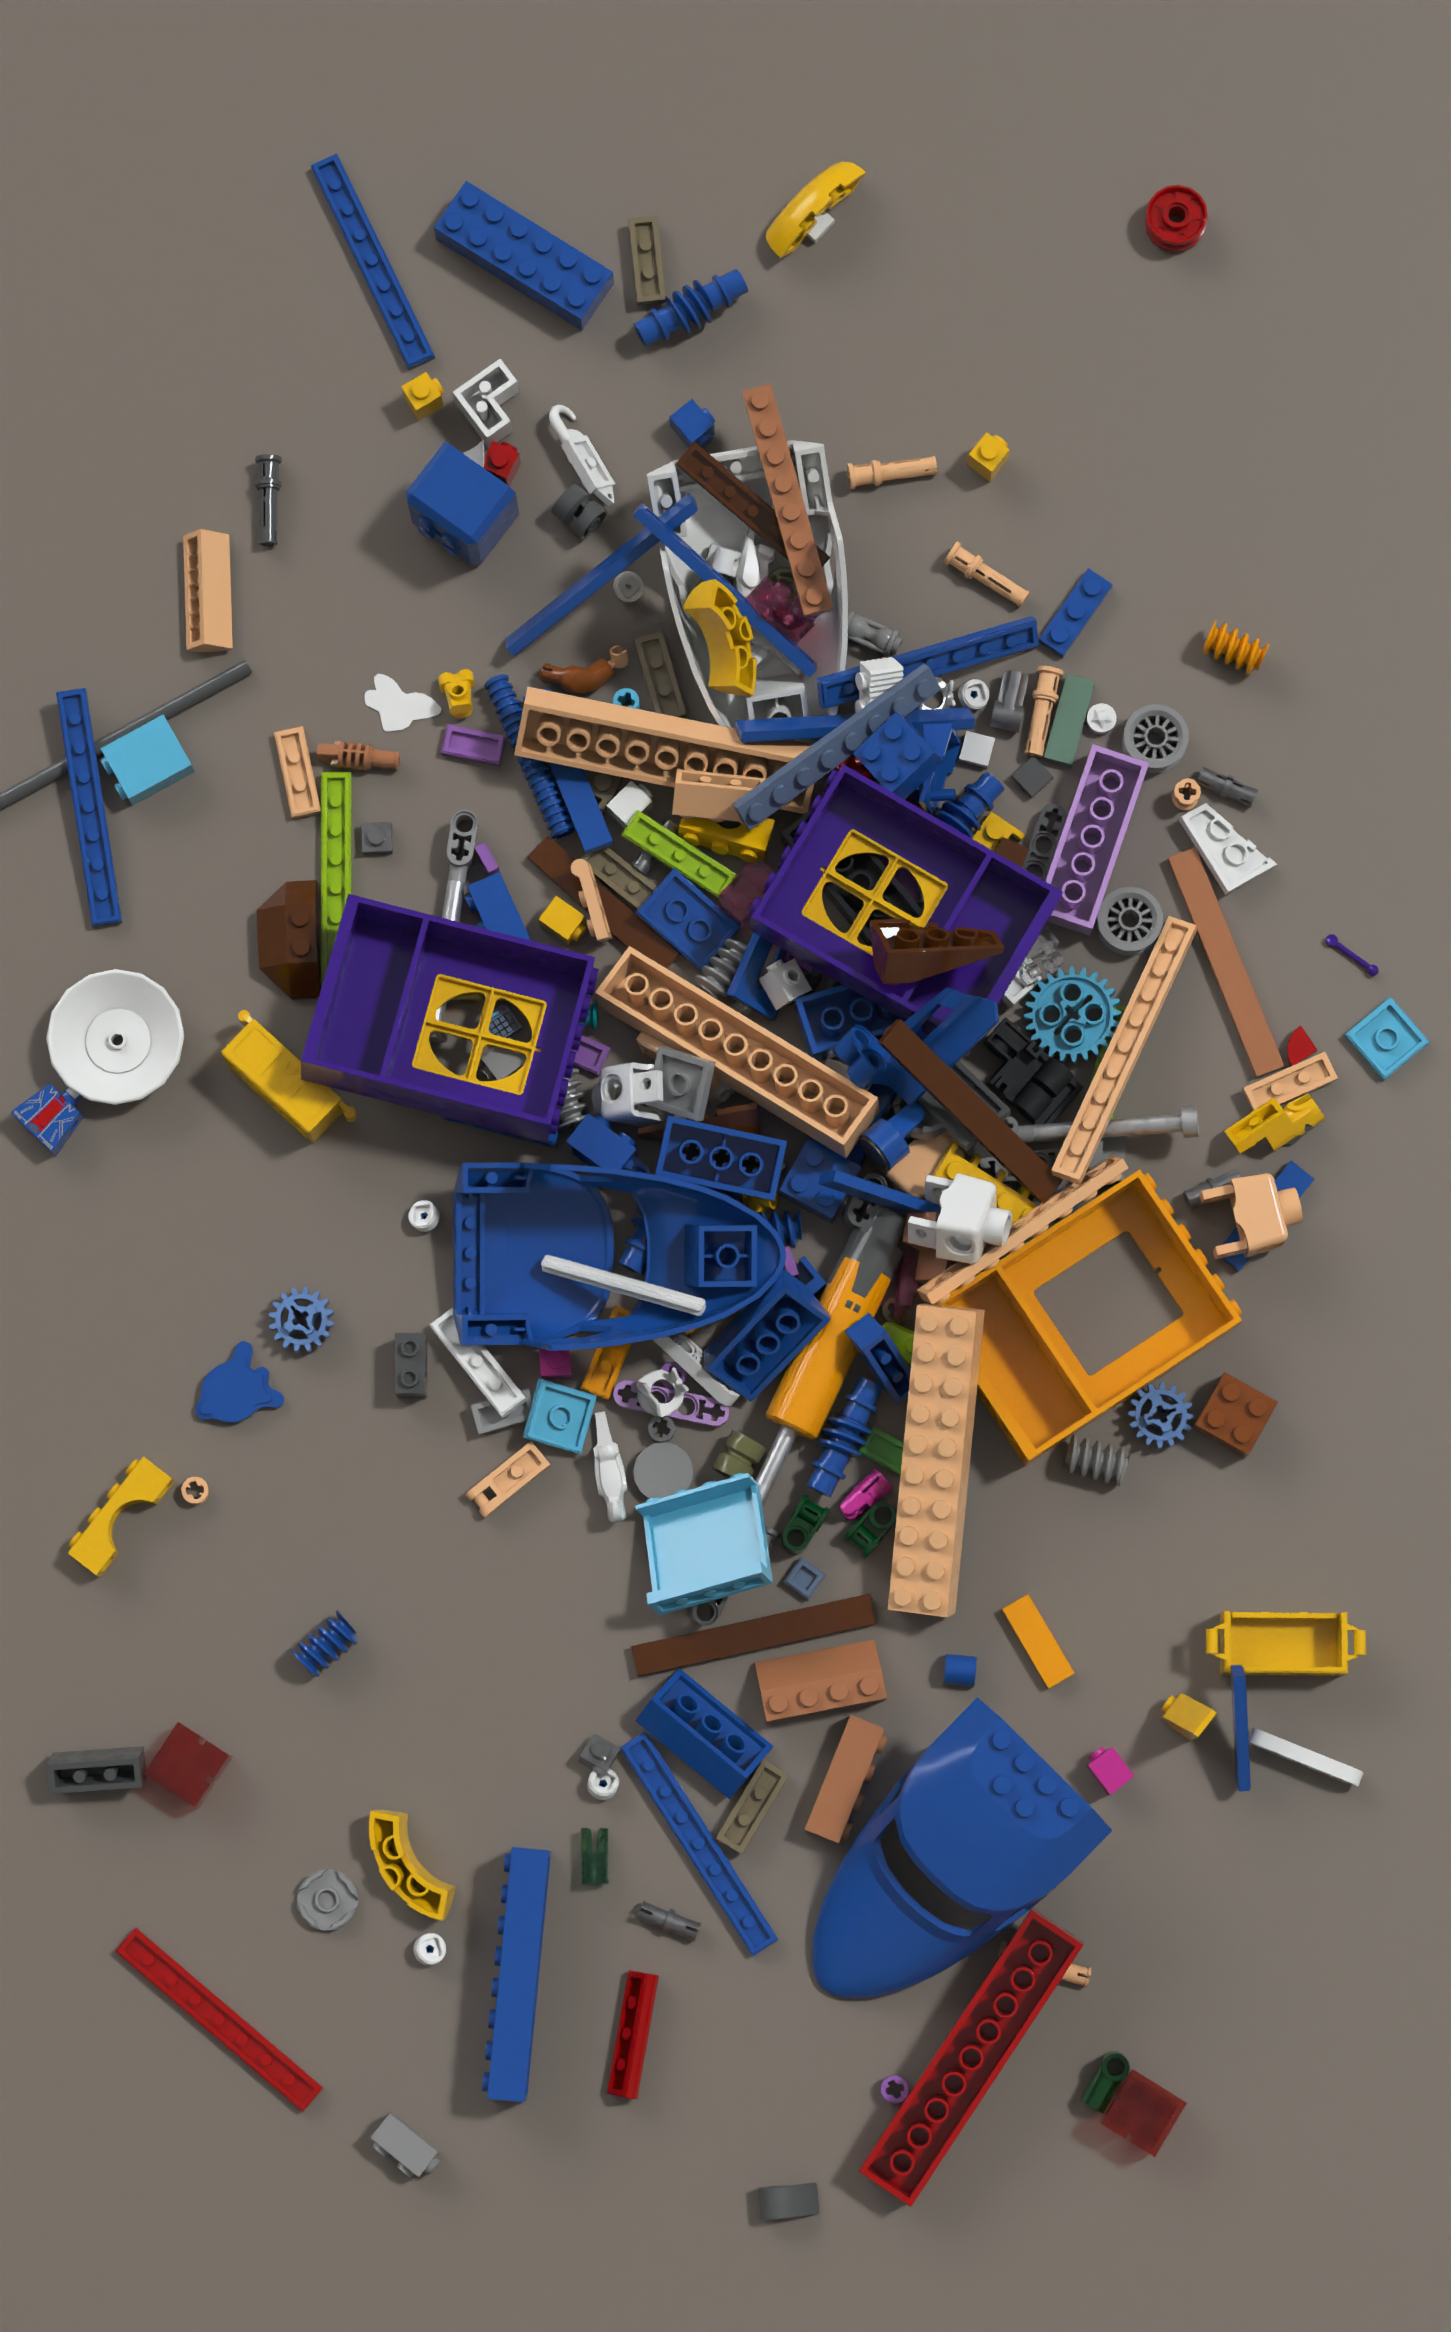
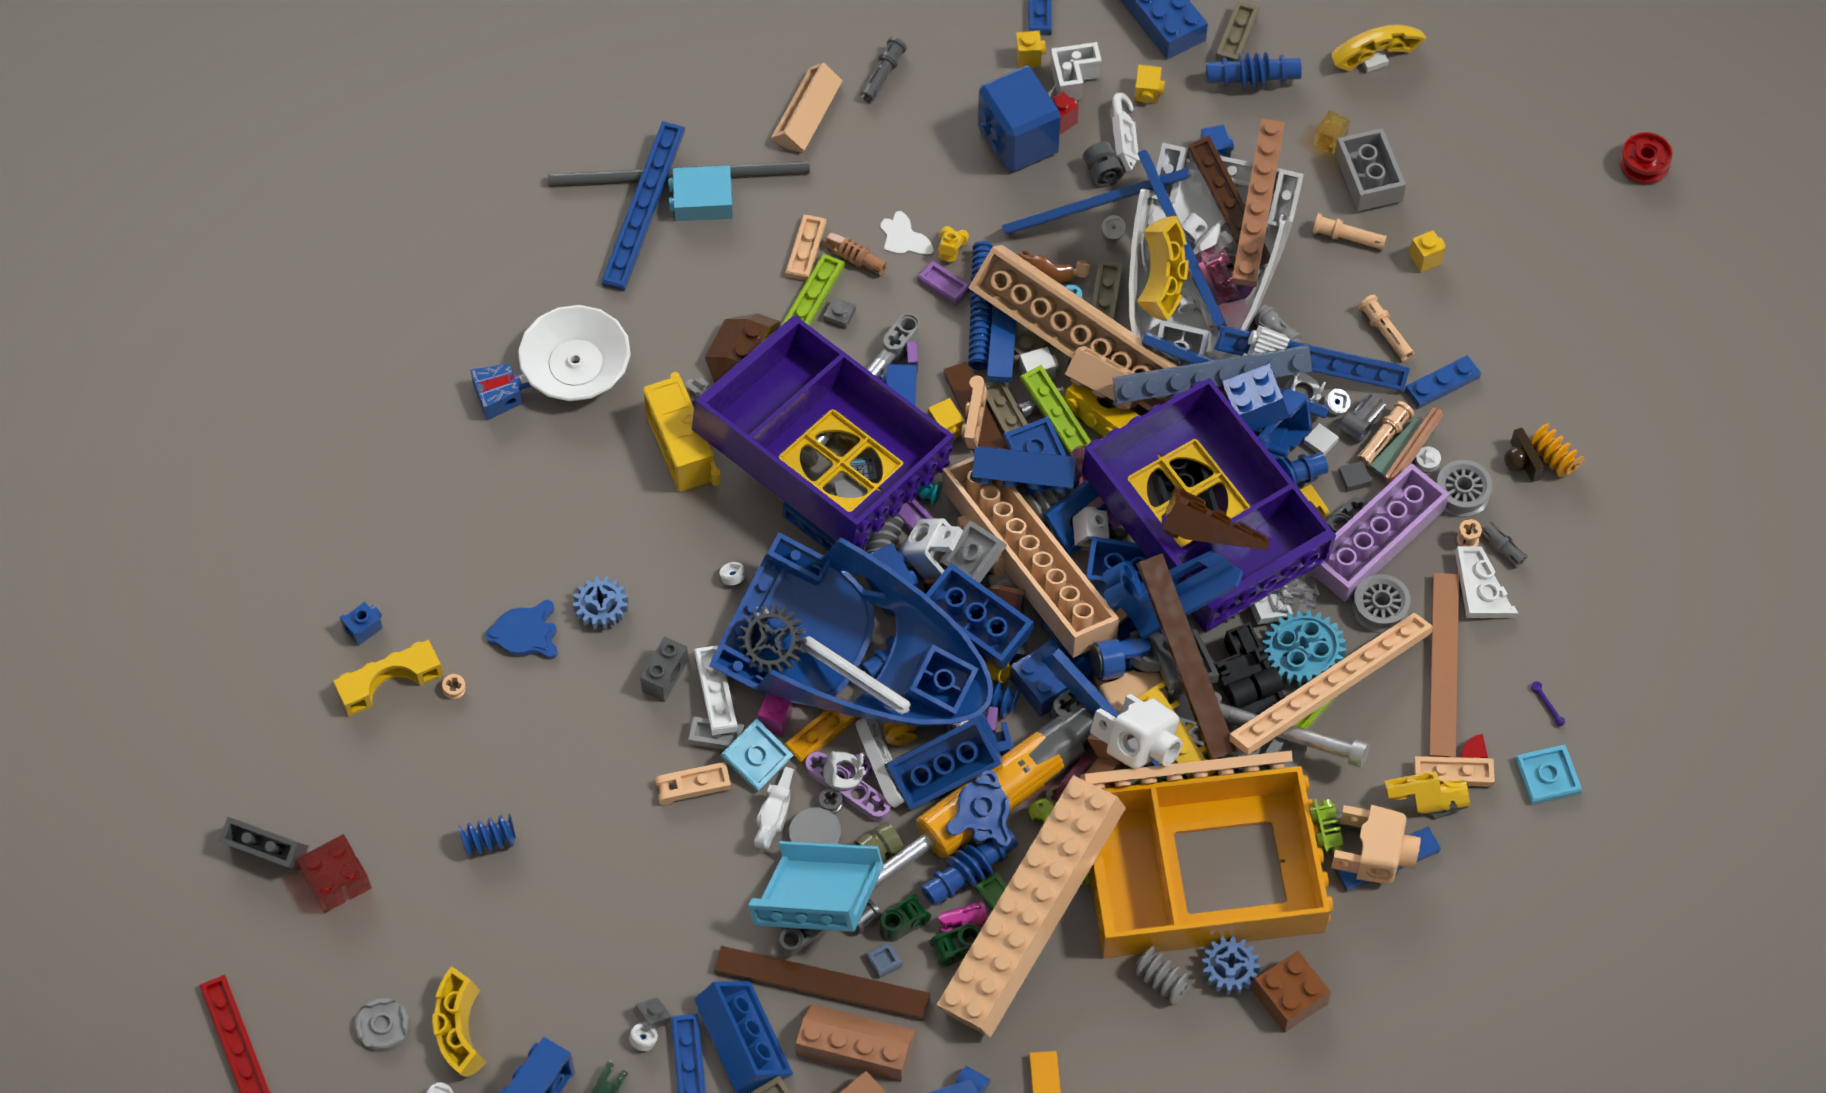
camera: 25 degrees right, 20 degrees down
(57, 1477) = (362, 622): none -> blue brick
(273, 1016) = (696, 388): none -> light grey gear
(524, 1290) = (783, 633): none -> dark grey gear
(580, 379) = (1148, 84): none -> yellow brick
(684, 952) = (1024, 467): none -> blue slope
(813, 348) = (1329, 130): none -> clear yellow brick
(834, 1378) = (983, 810): none -> blue tile
(880, 380) = (1370, 169): none -> light grey brick
(881, 1357) = (1026, 809): blue brick -> none
(1081, 714) = (1414, 444): none -> nougat axle
(1197, 1226) = (1321, 813): none -> lime hinge
(1202, 669) = (1523, 455): none -> dark brown tile

